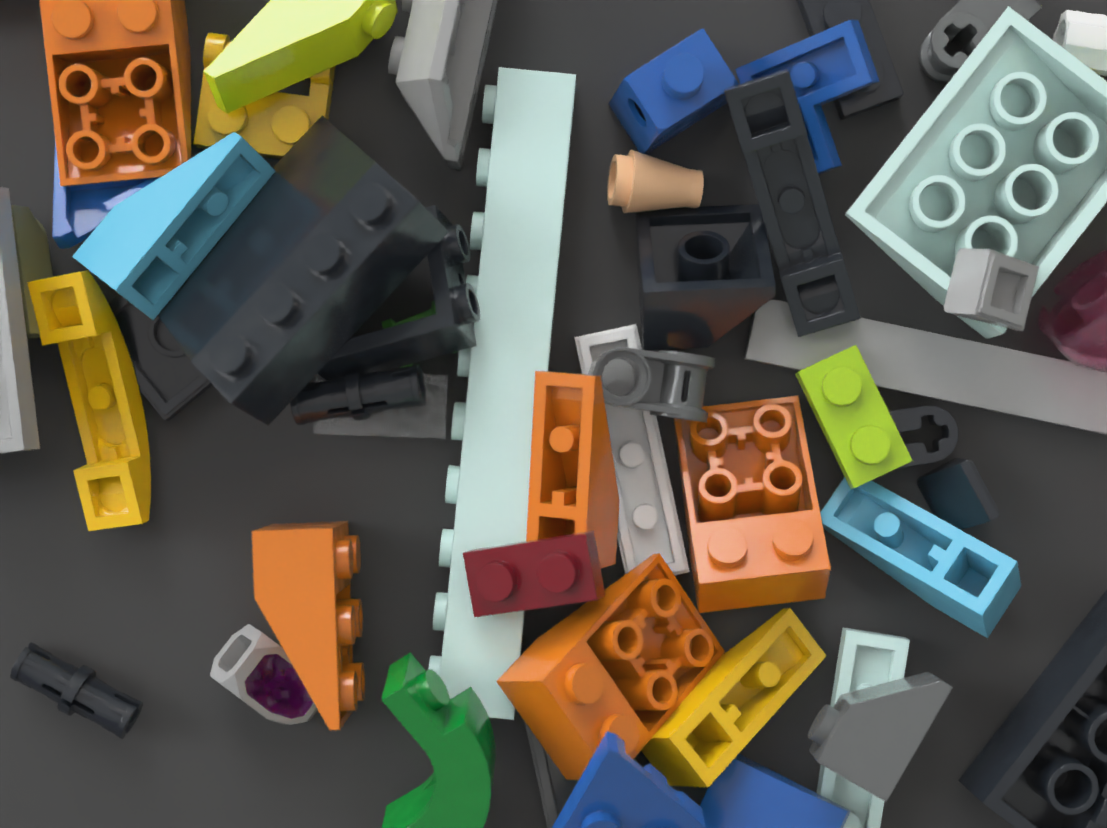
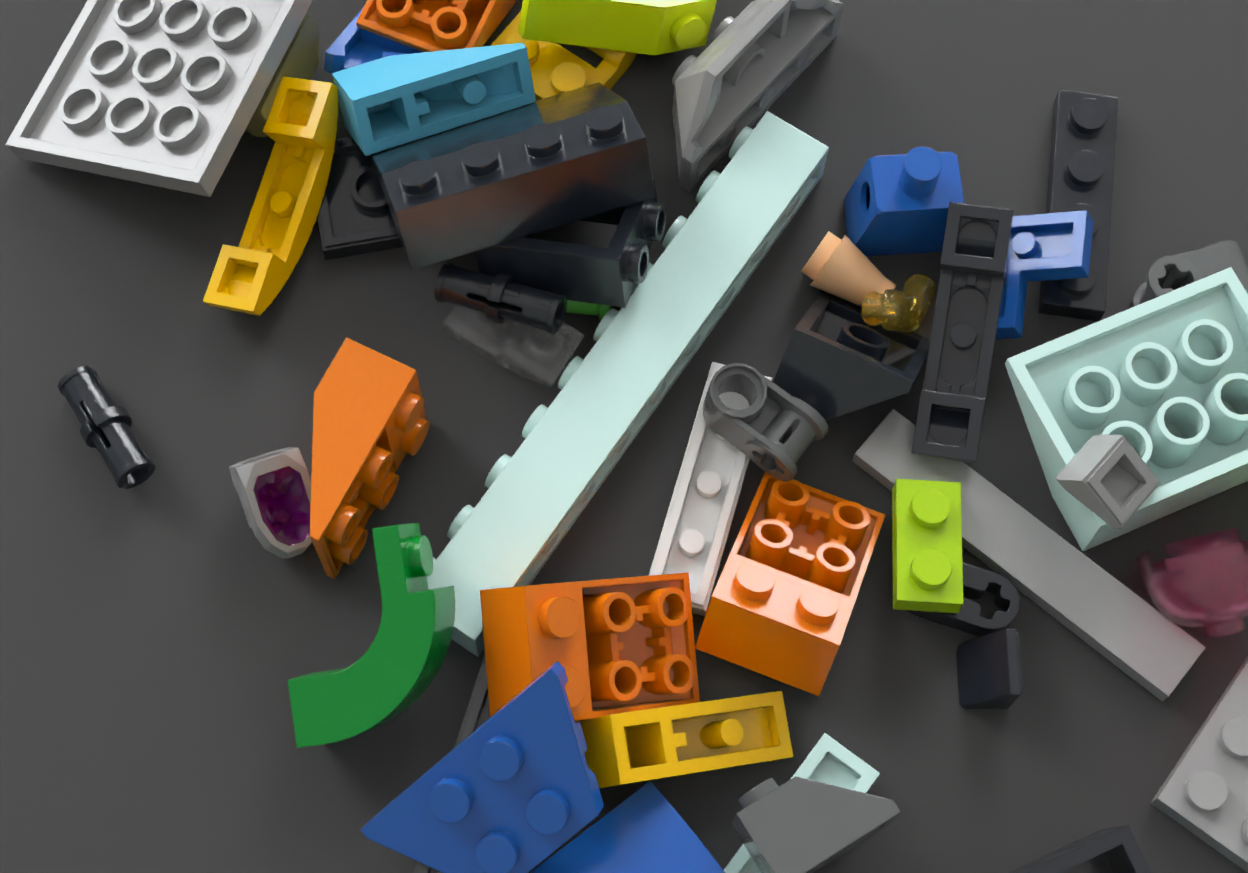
camera: 25 degrees right, 20 degrees down
(534, 574) = (568, 510): dark red plate -> none
(572, 463) = (646, 459): orange slope -> none
(720, 199) = (897, 309): none -> clear yellow arm
(924, 554) = (936, 706): medium azure slope -> none

